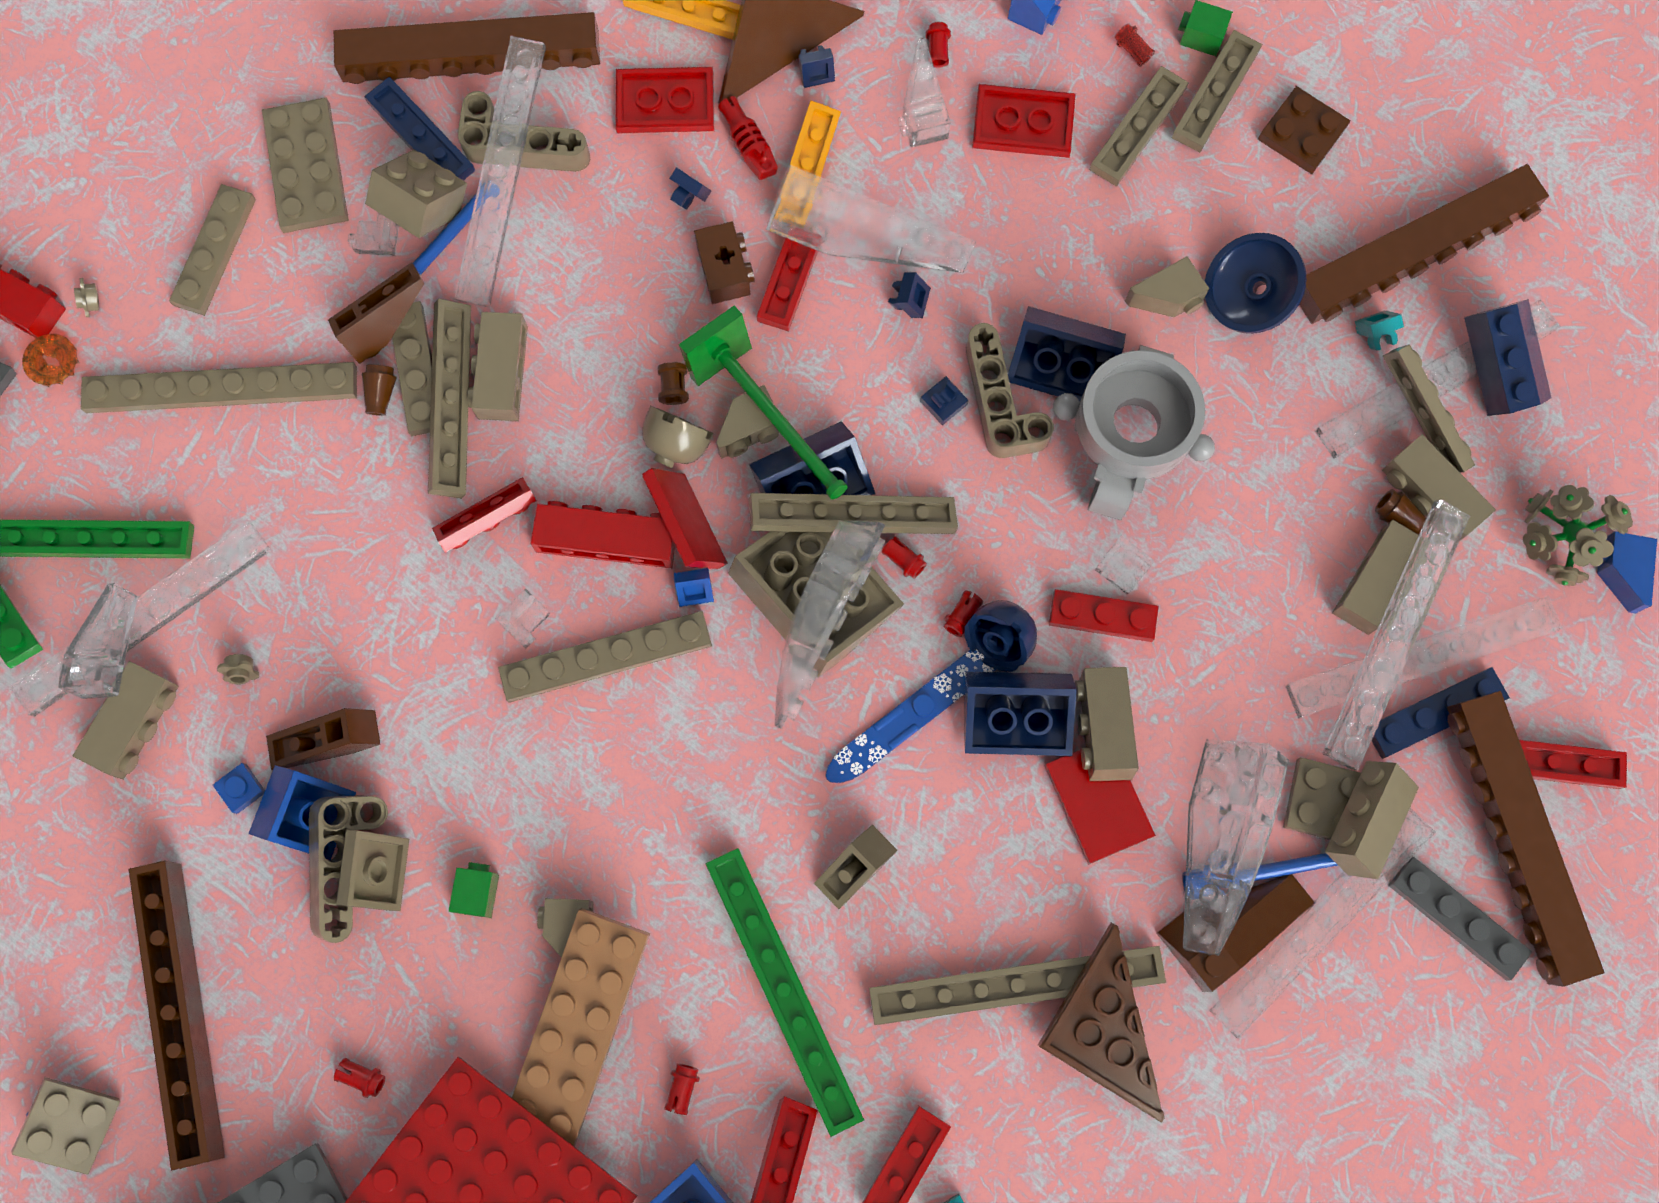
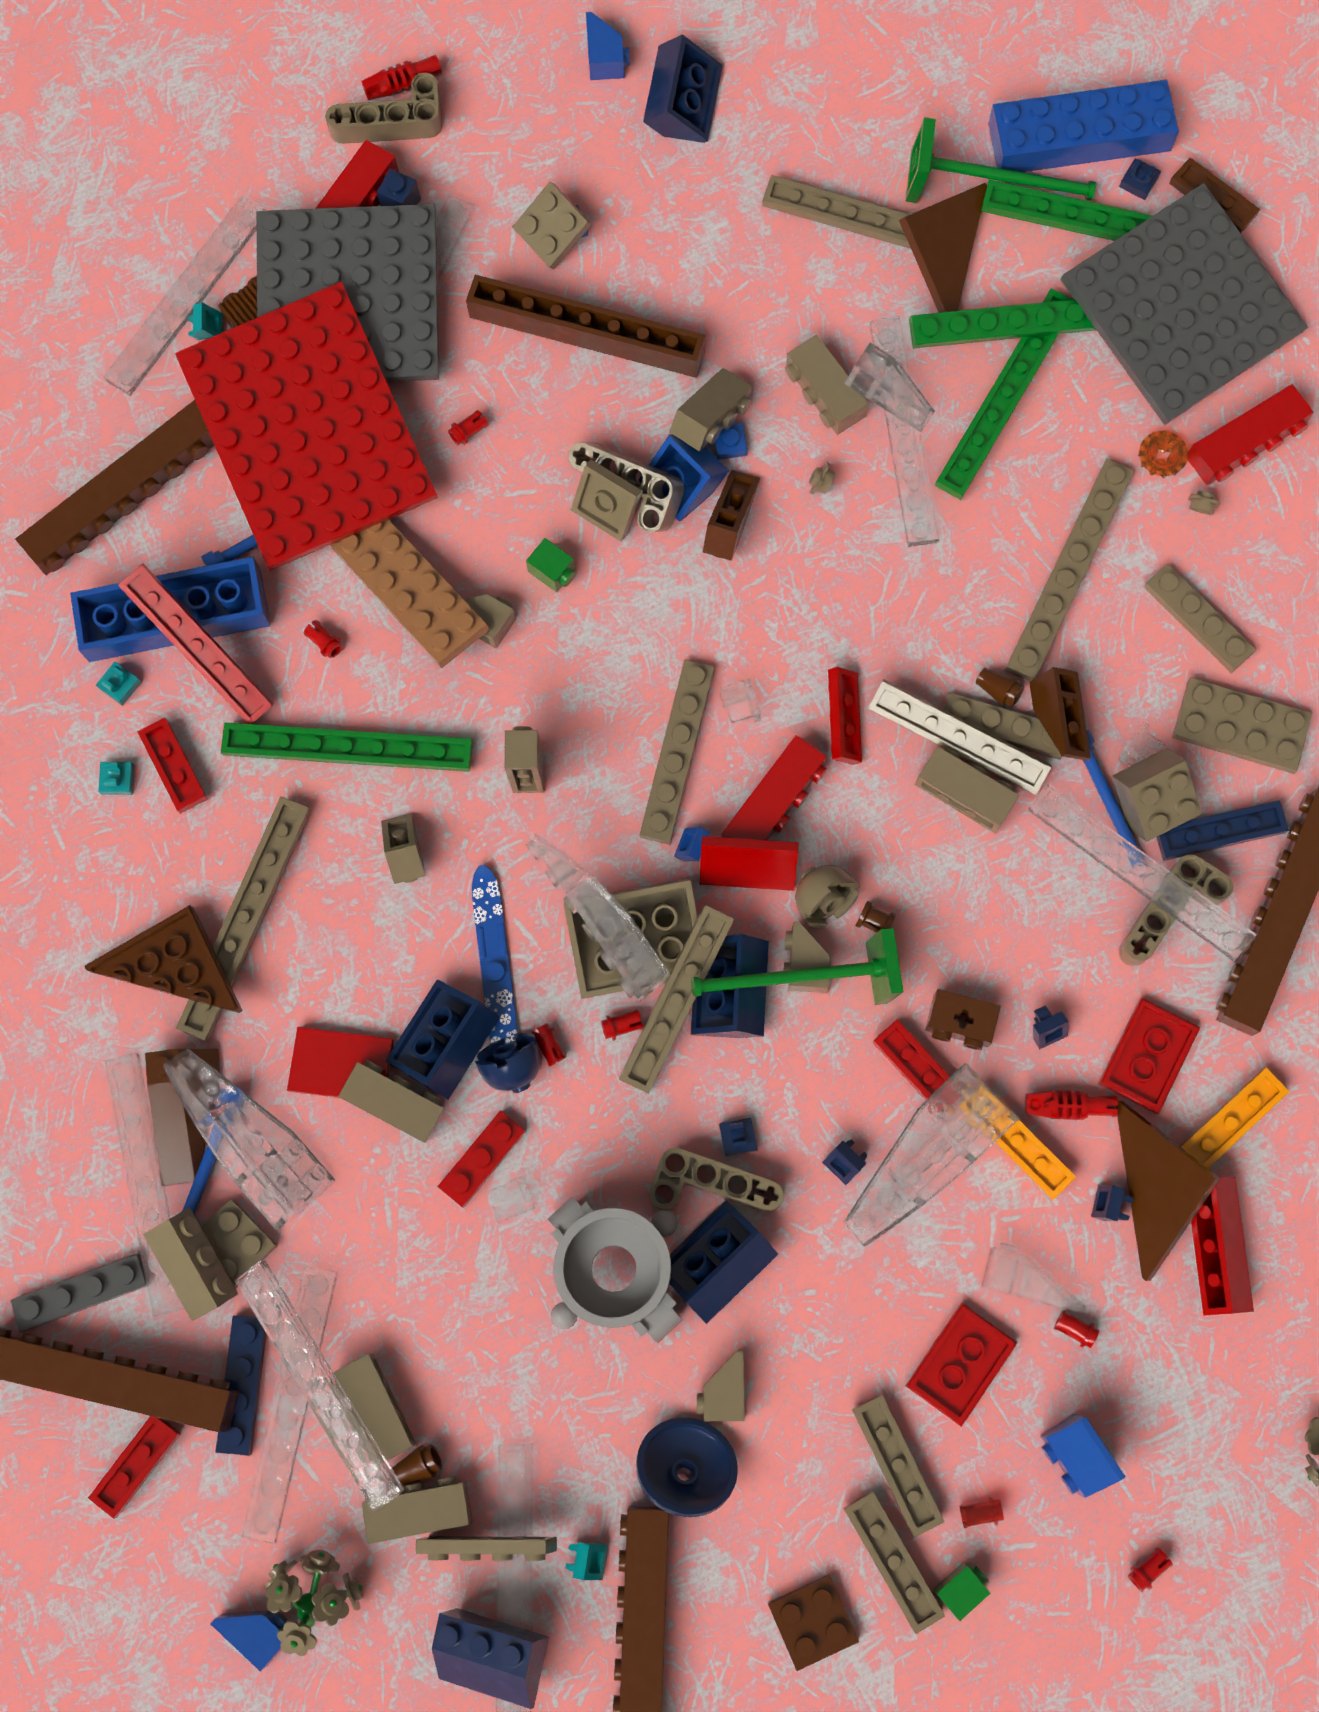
camera: 125 degrees right, 0 degrees up
(214, 815) = (711, 409): none -> dark tan brick
(702, 784) = (524, 760): none -> dark tan brick

